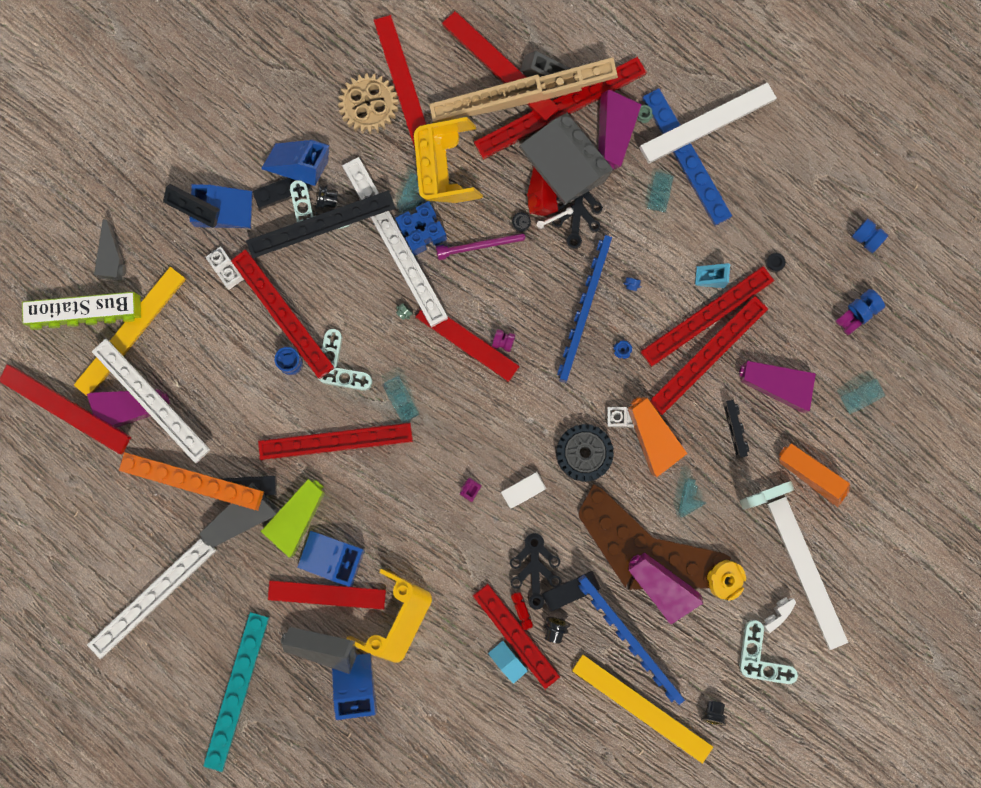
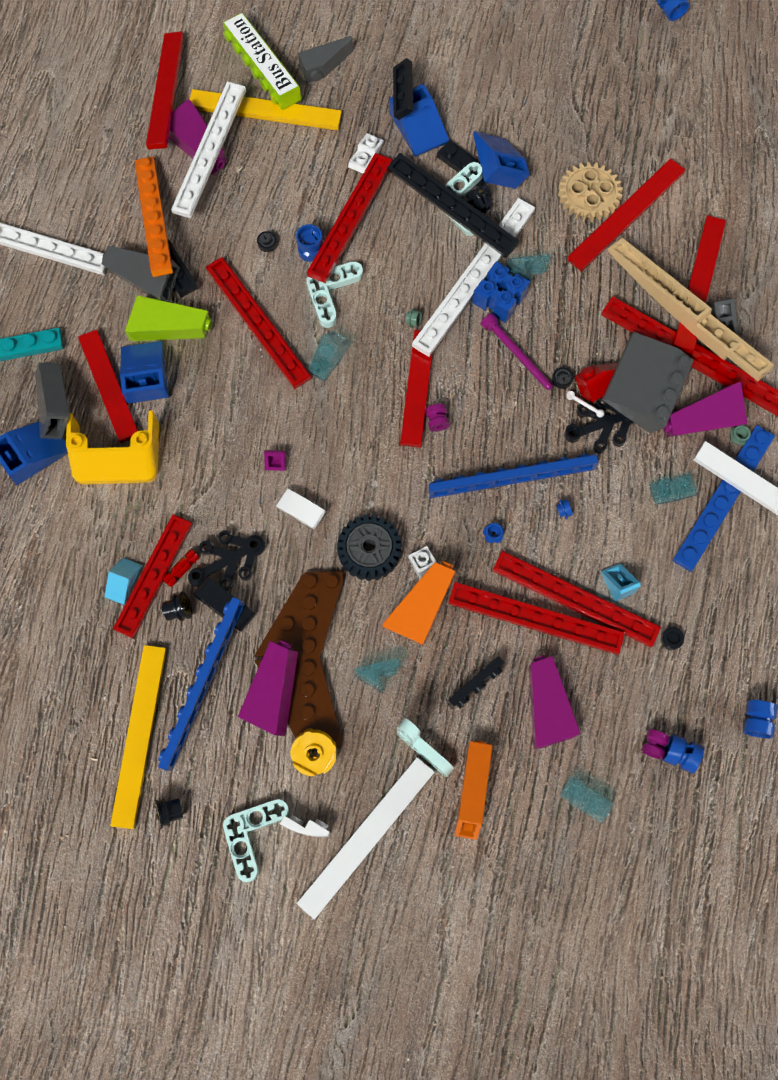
camera: 60 degrees right, 10 degrees down
(263, 395) = (267, 241): none -> tile
(431, 161) = (572, 267): yellow windscreen -> none

